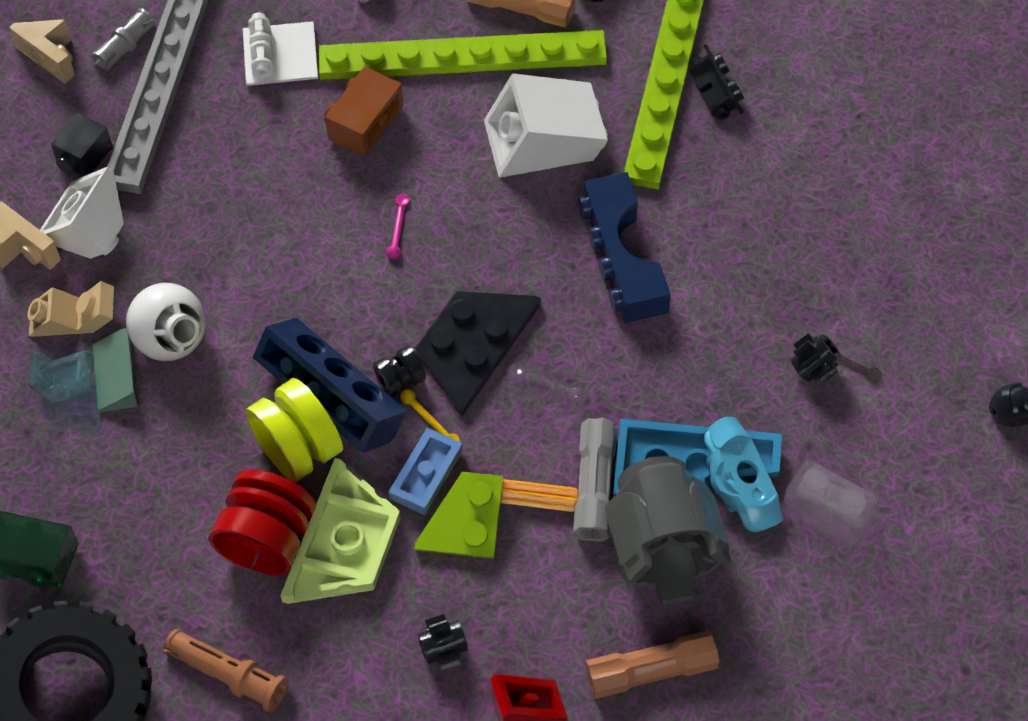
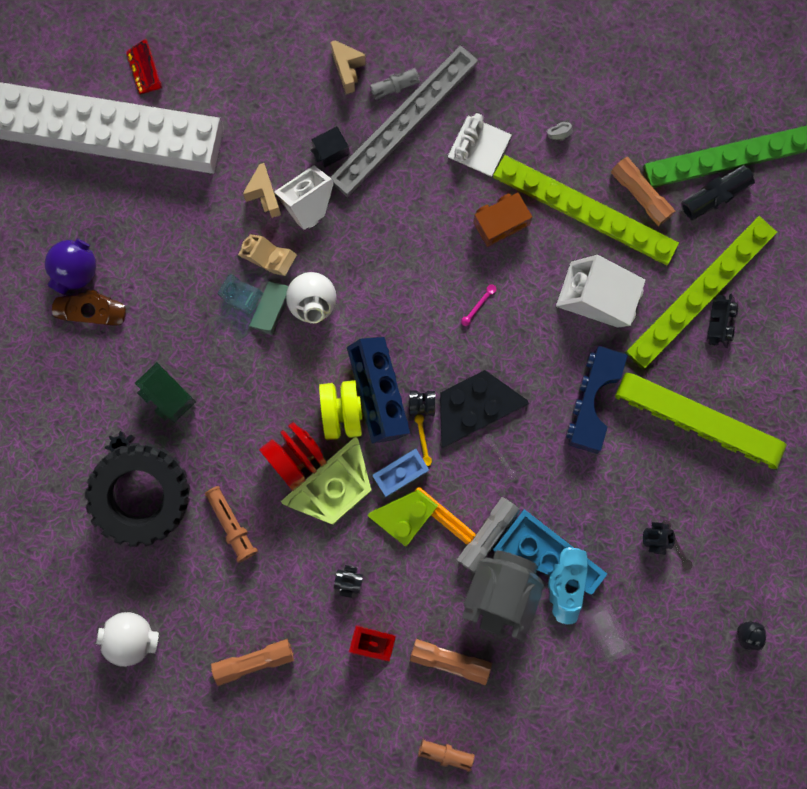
camera: 30 degrees right, 20 degrees up
(769, 200) = (701, 419): none -> lime beam

